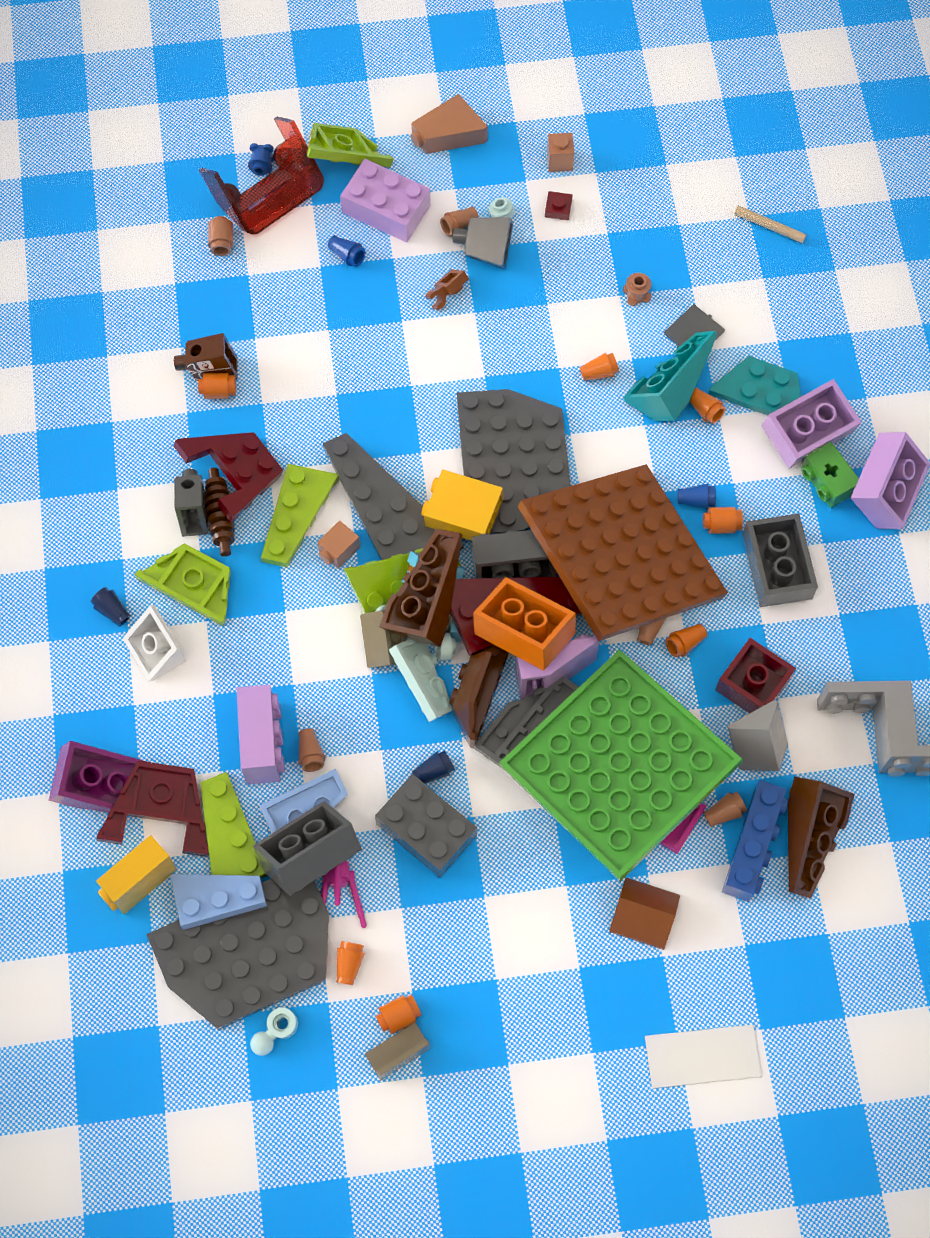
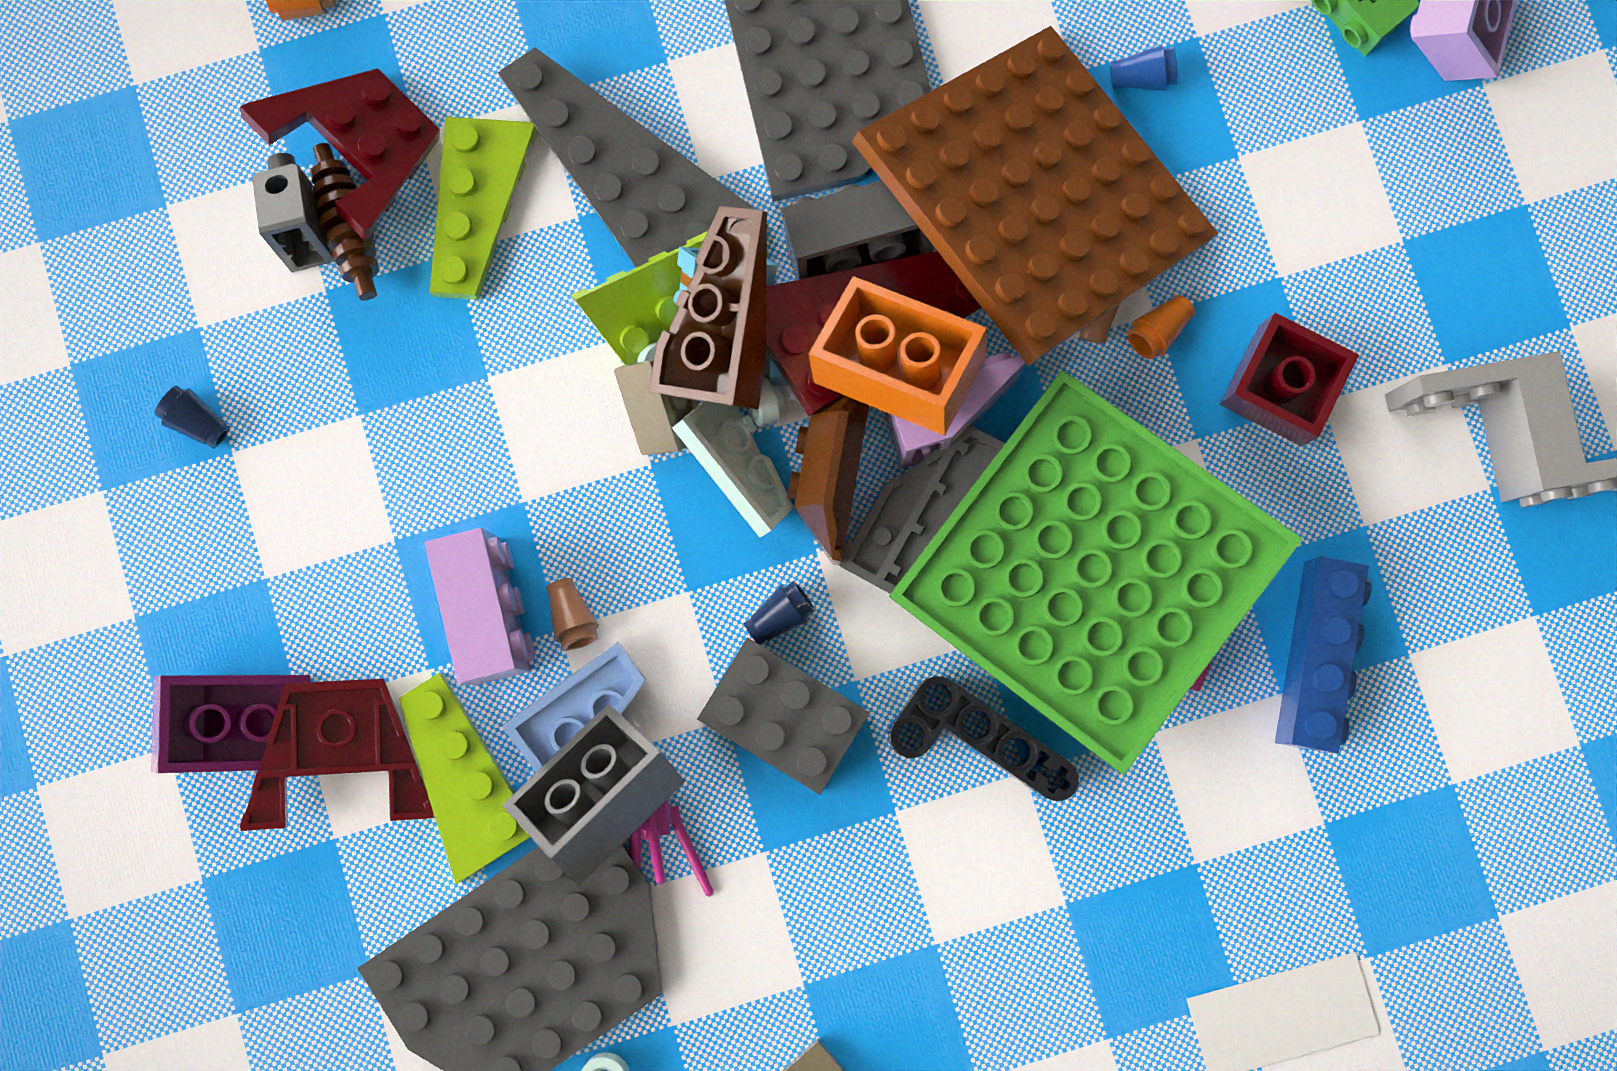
camera: 10 degrees left, 15 degrees up
(135, 875) = (317, 883): yellow brick -> none
(153, 645) = (278, 473): white slope -> none
(192, 581) = (321, 351): lime wing -> none
(215, 897) = (456, 894): light blue wing -> none
(338, 545) = (555, 250): nougat brick -> none
(348, 962) = (695, 958): orange cone -> none
(398, 1014) = (789, 1035): orange brick -> none
(462, 505) = (754, 150): yellow brick -> none
(545, 862) = (988, 745): none -> black beam
(644, 913) = (1163, 802): dark orange slope -> none
(723, 520) = (1194, 106): orange brick -> none
(726, 809) = (1273, 607): nougat cone -> none
(760, 738) = (1311, 484): light grey slope -> none
(779, 560) = (1300, 163): dark grey brick -> none
(814, 820) = (1409, 604): reddish brown wedge -> none

